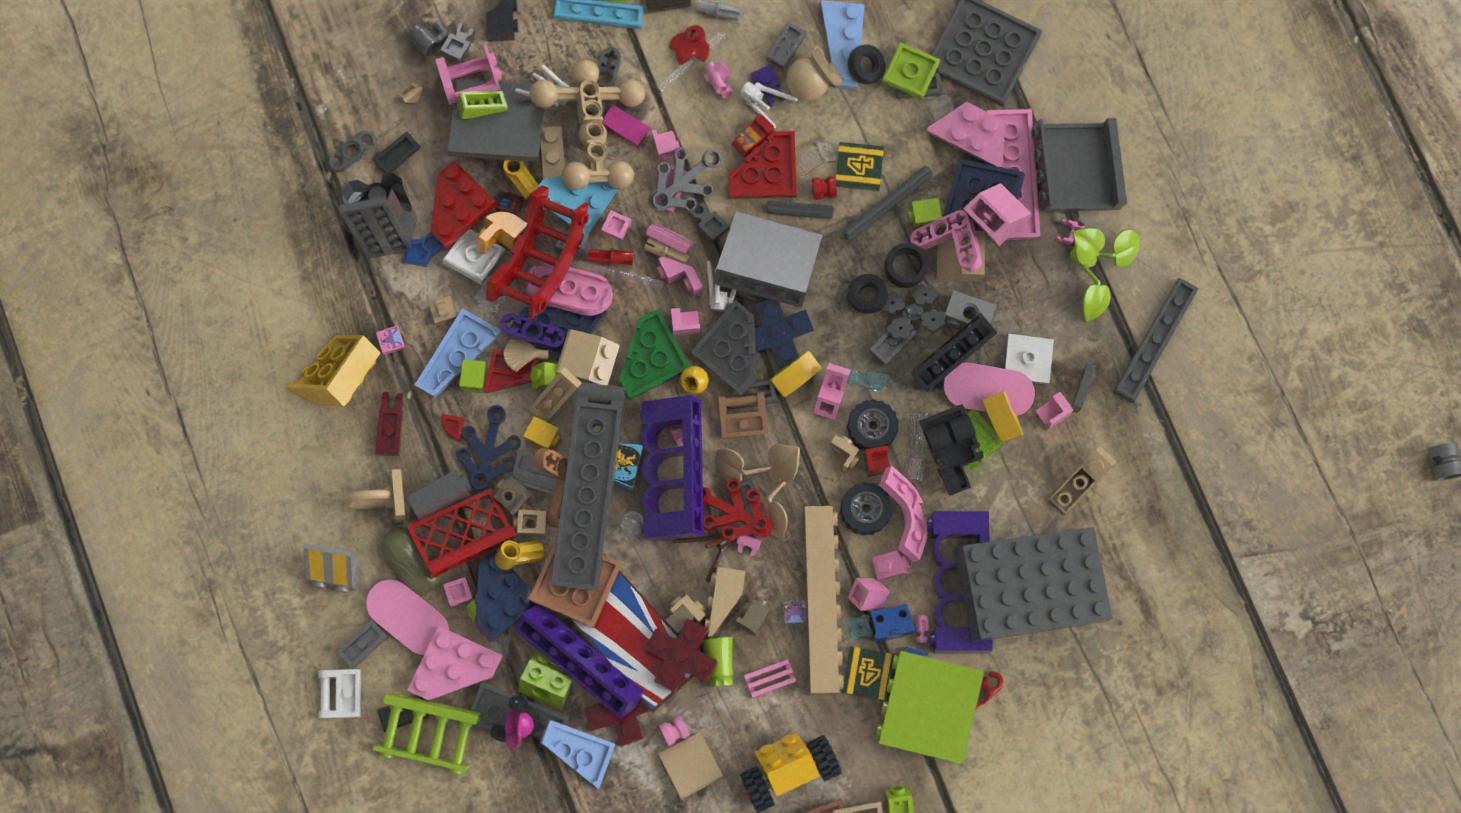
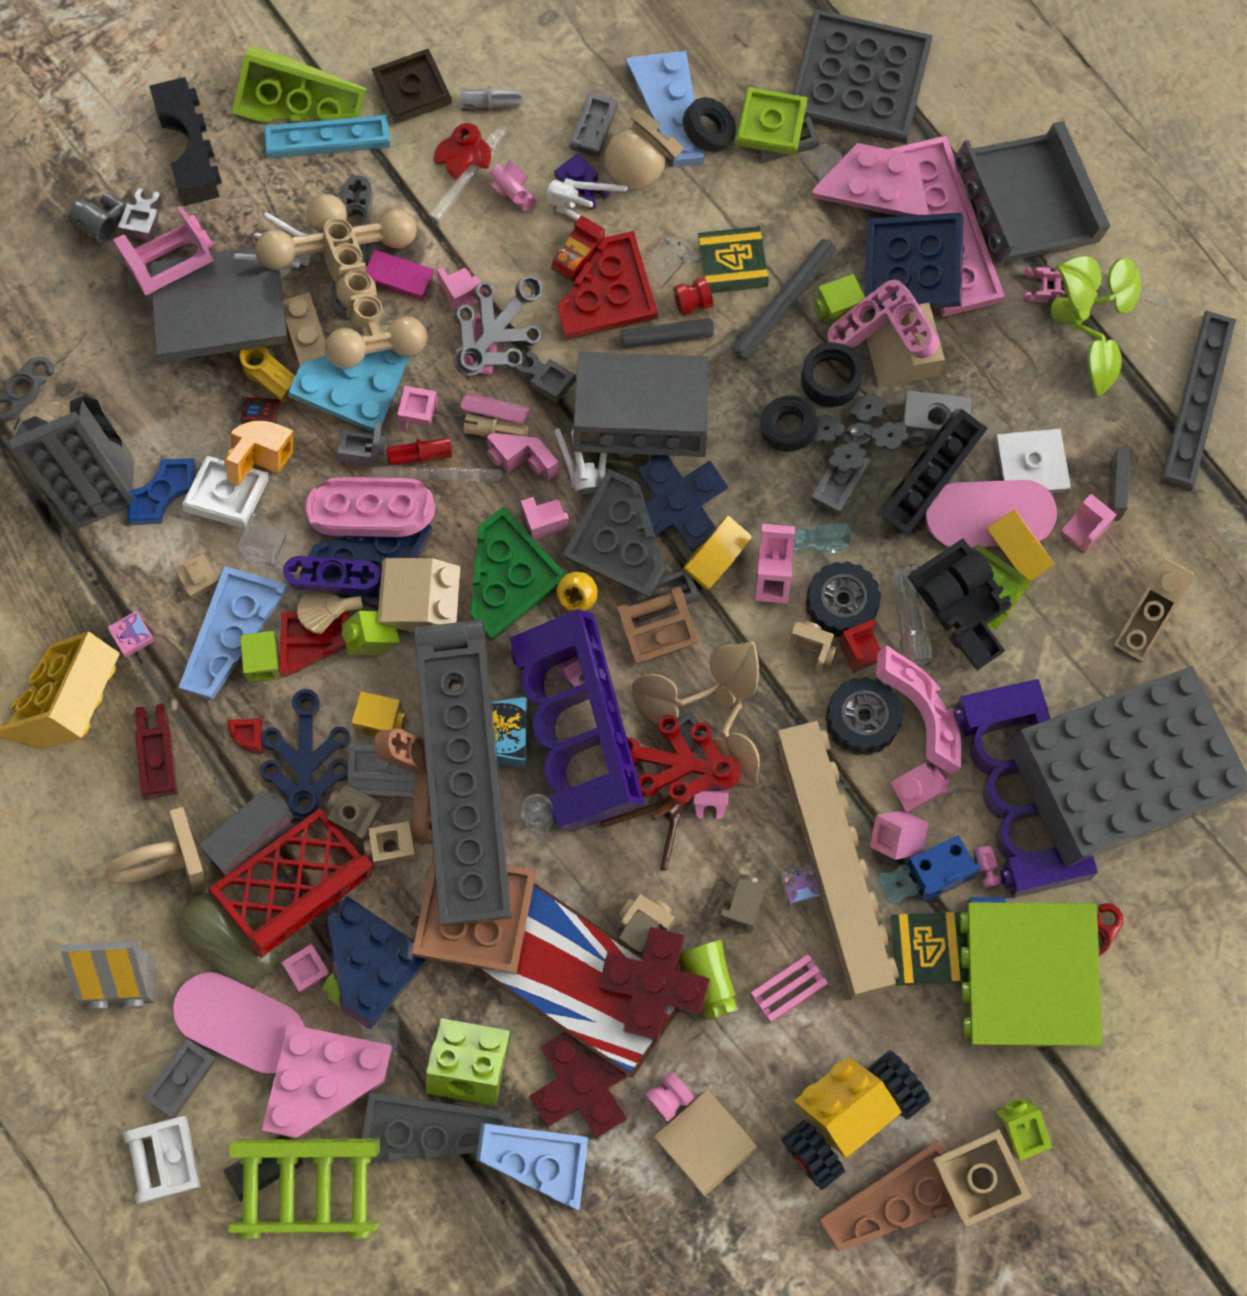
camera: 10 degrees left, 5 degrees down
(396, 153) = (87, 375): pearl dark grey tile -> none
(411, 93) = (89, 295): tan slope -> none
(457, 204) = (187, 427): red plate -> none
(468, 109) = (179, 286): lime slope -> none
(519, 554) = (382, 892): yellow piece -> none
(519, 724) = (440, 1140): cap -> none
(523, 248) = (273, 511): red fence -> none
(555, 395) = (384, 653): tan plate -> none
(579, 661) = (507, 1026): dark purple brick -> none
(727, 593) = (697, 879): tan slope -> none
(997, 213) = (941, 273): bright pink slope -> none

